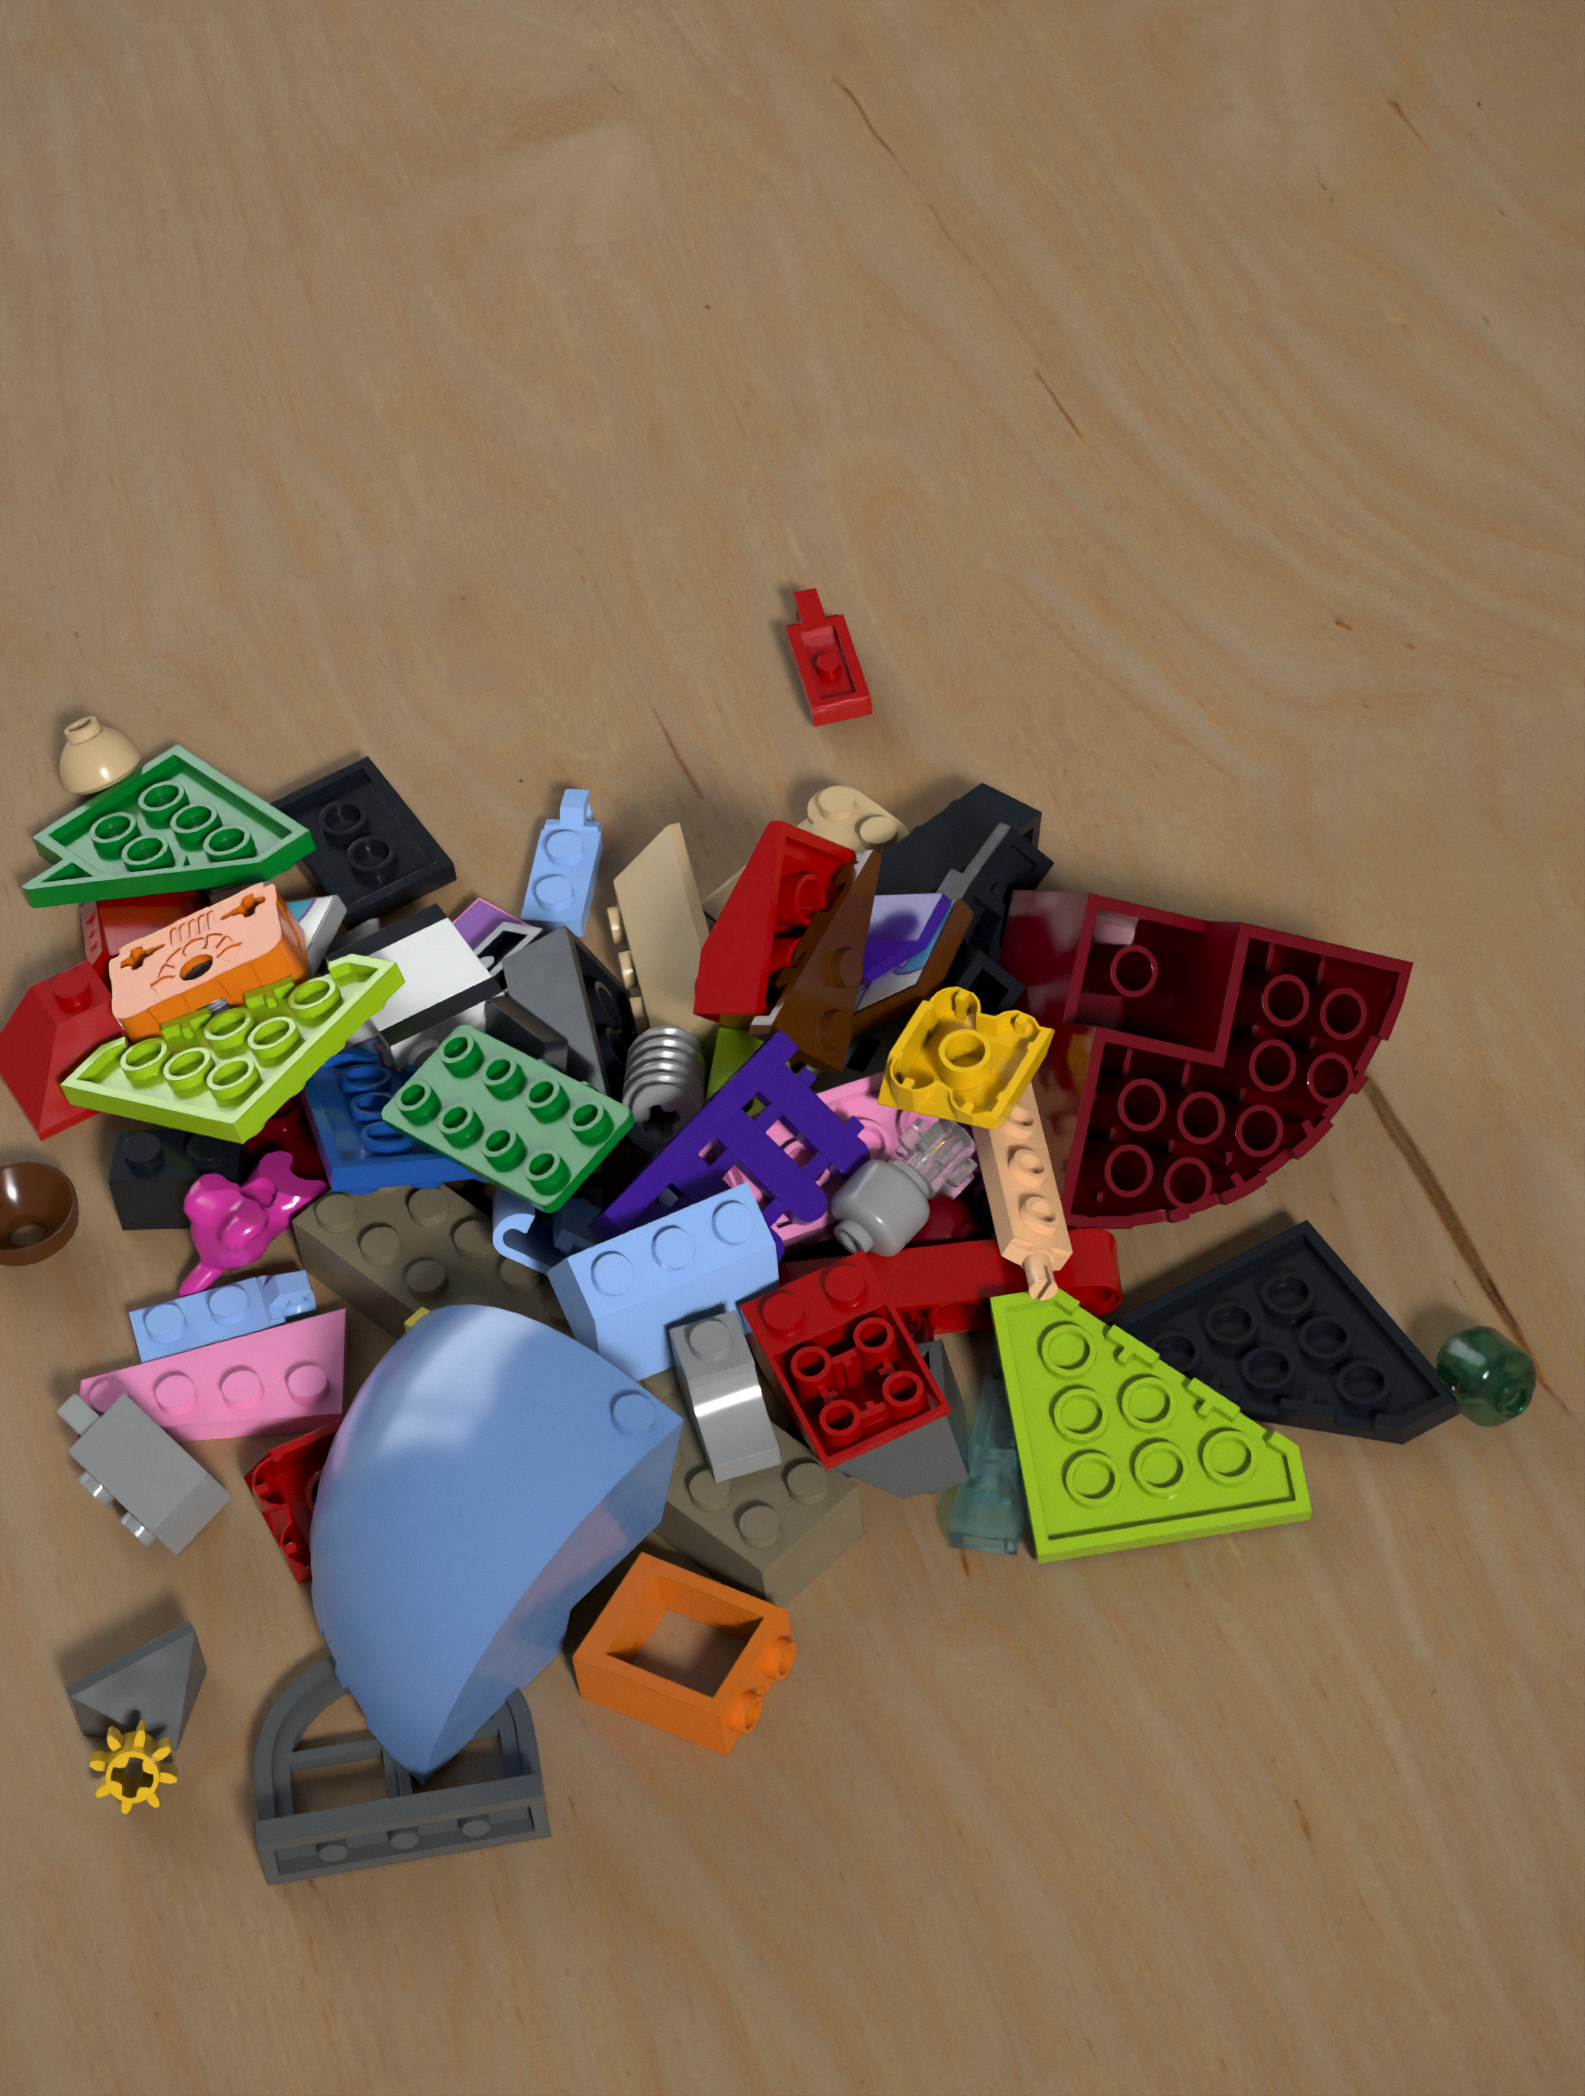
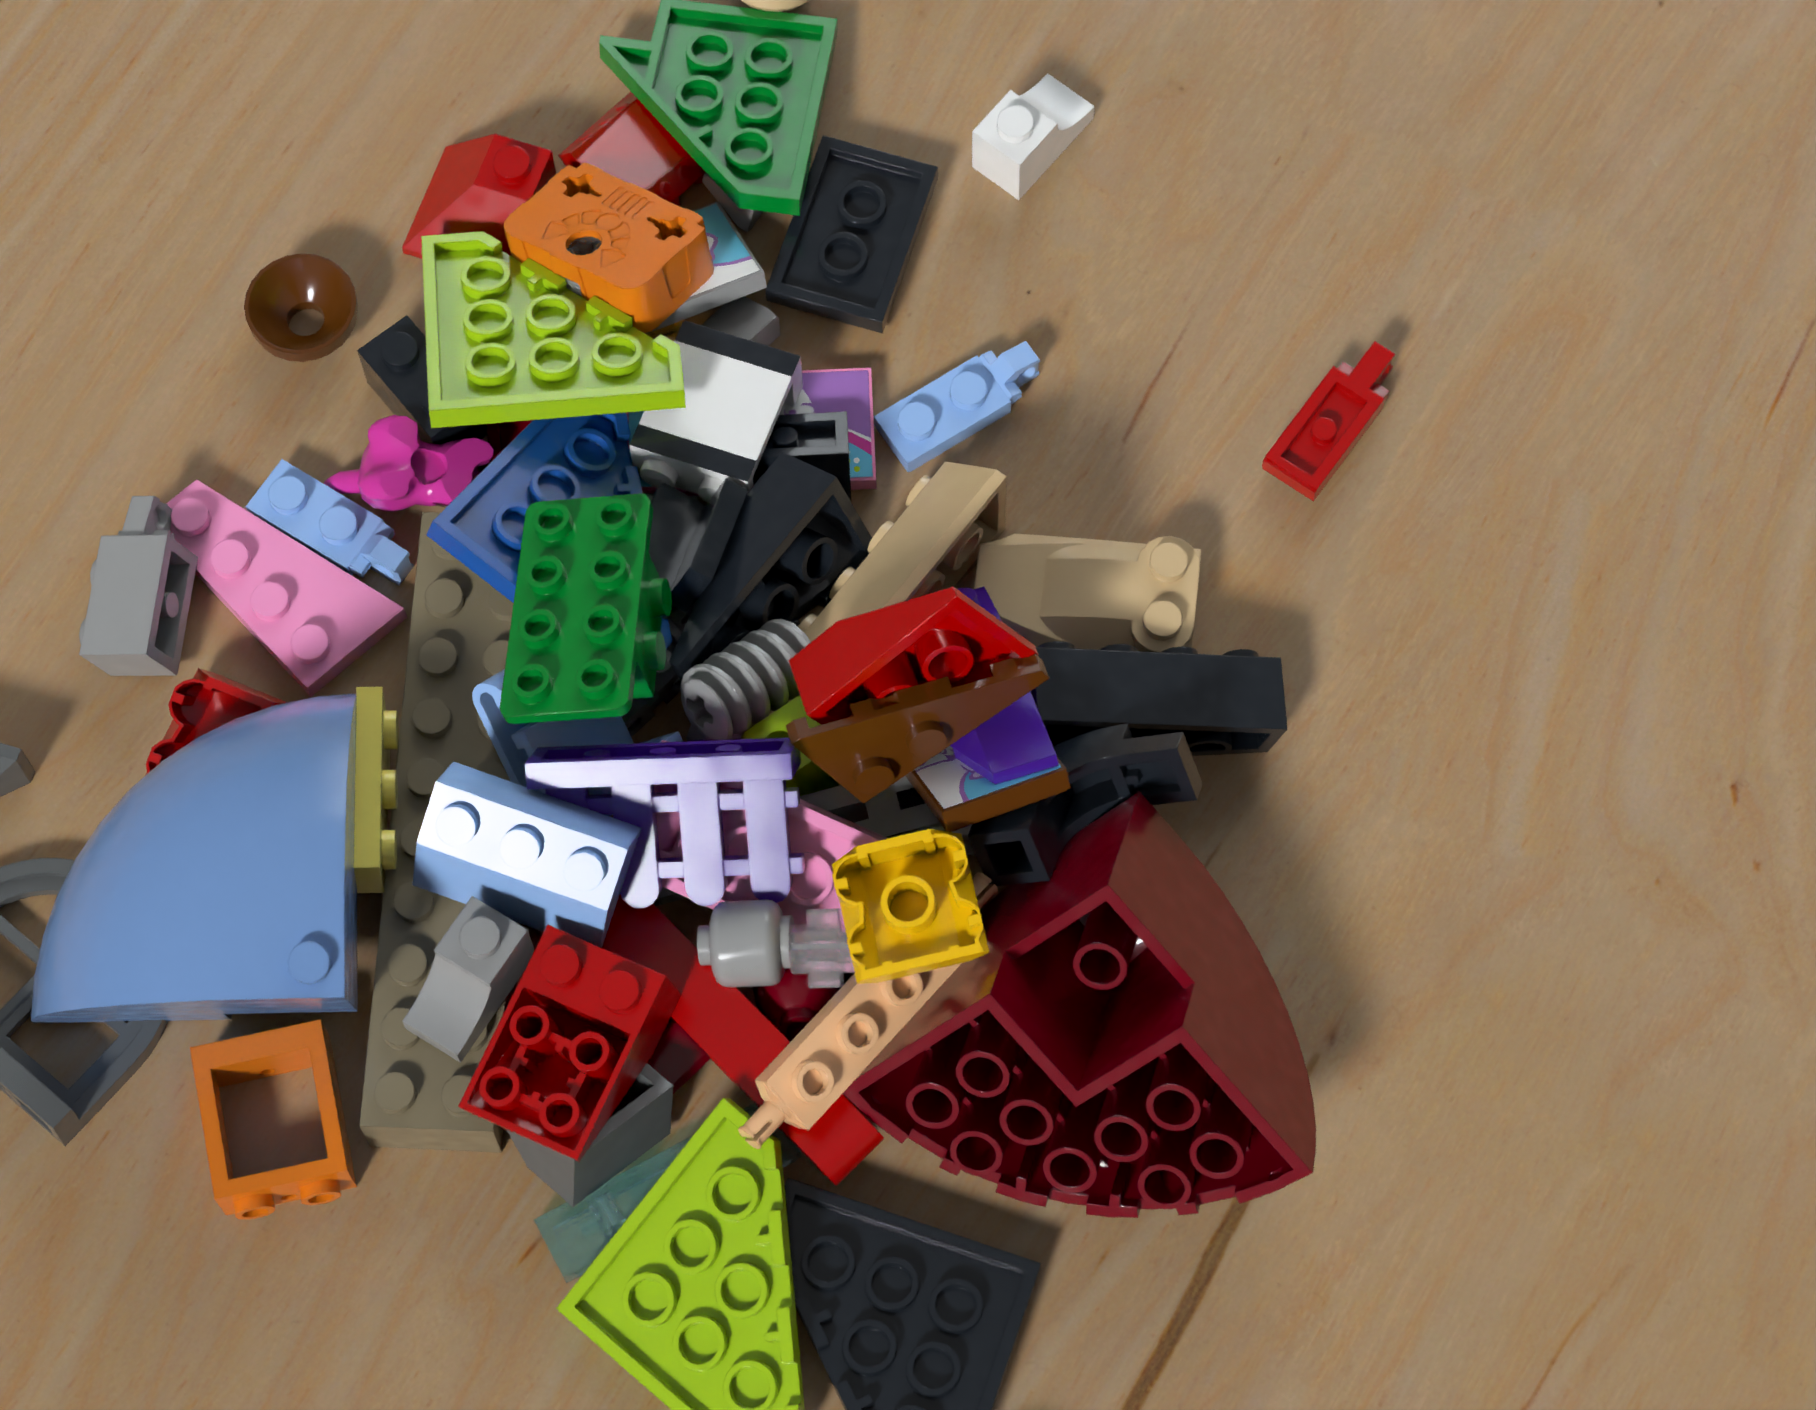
camera: 45 degrees right, 20 degrees up
(402, 698) = (1028, 134): none -> white arch

